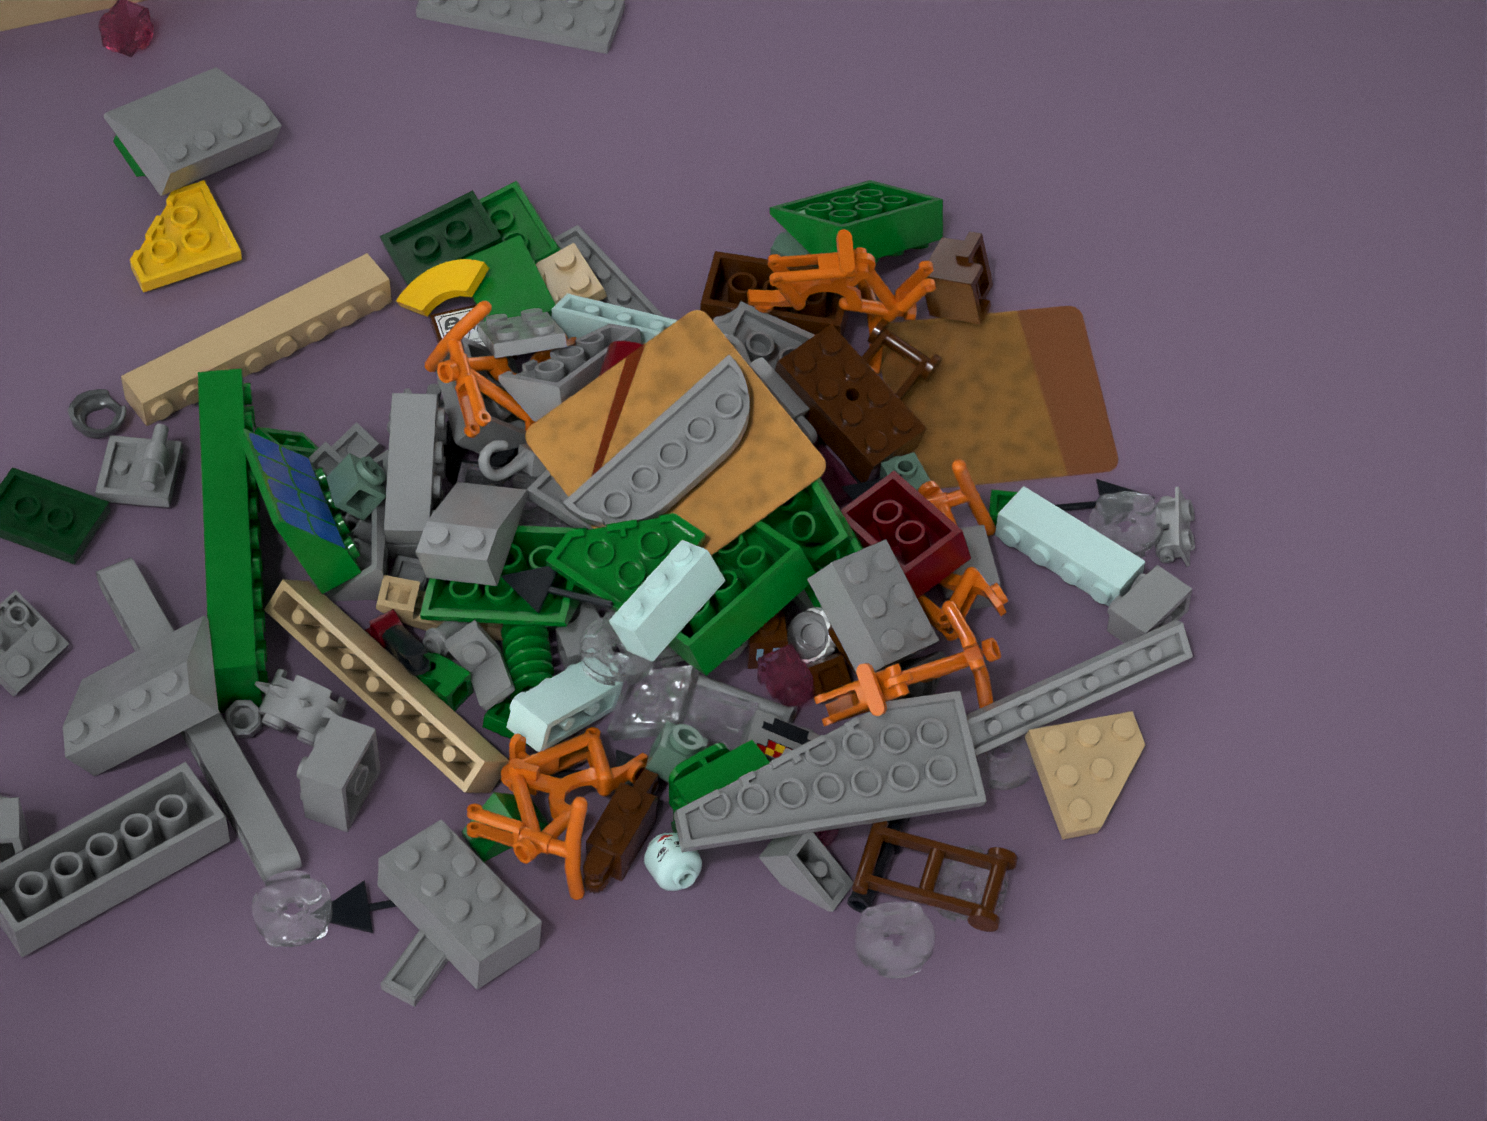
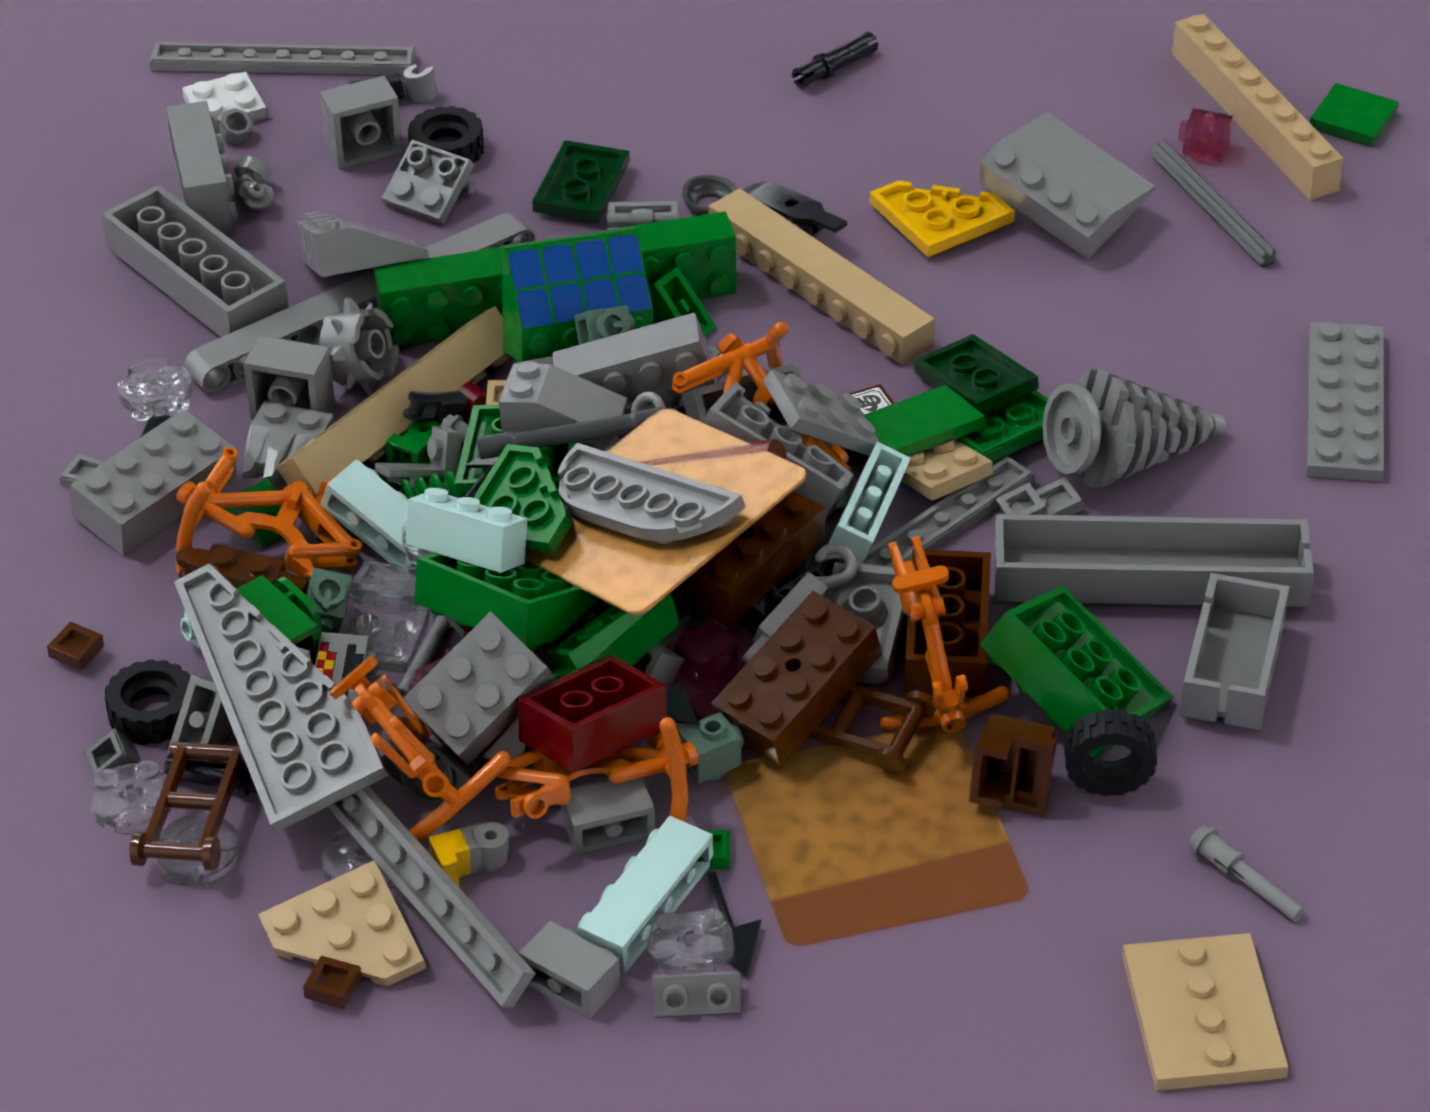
camera: 85 degrees right, 10 degrees down
(127, 355) = (797, 207): none -> black piece
(219, 44) = (1214, 203): none -> dark grey axle
(409, 792) = (278, 434): none -> light grey plate
(442, 283) = (911, 379): yellow tile -> none
(534, 563) = (493, 445): none -> dark grey piece
(565, 149) = (1117, 427): none -> light grey plant
(615, 227) = (1053, 499): none -> light grey slope
(682, 982) = (75, 645): none -> reddish brown plate
(721, 157) = (1146, 557): none -> light grey piece
(769, 946) = (144, 679): none -> black tyre
(836, 957) = (111, 751): none -> dark grey slope
(842, 122) = (1234, 651): none -> light grey piece
(960, 207) = (1110, 729): none -> black tyre
(1004, 672) = (470, 851): none -> leg
(1045, 183) = (1208, 843): none -> light grey pin
(1146, 783) = (332, 982): none -> reddish brown plate
(1213, 219) = (1204, 1012): none -> tan plate

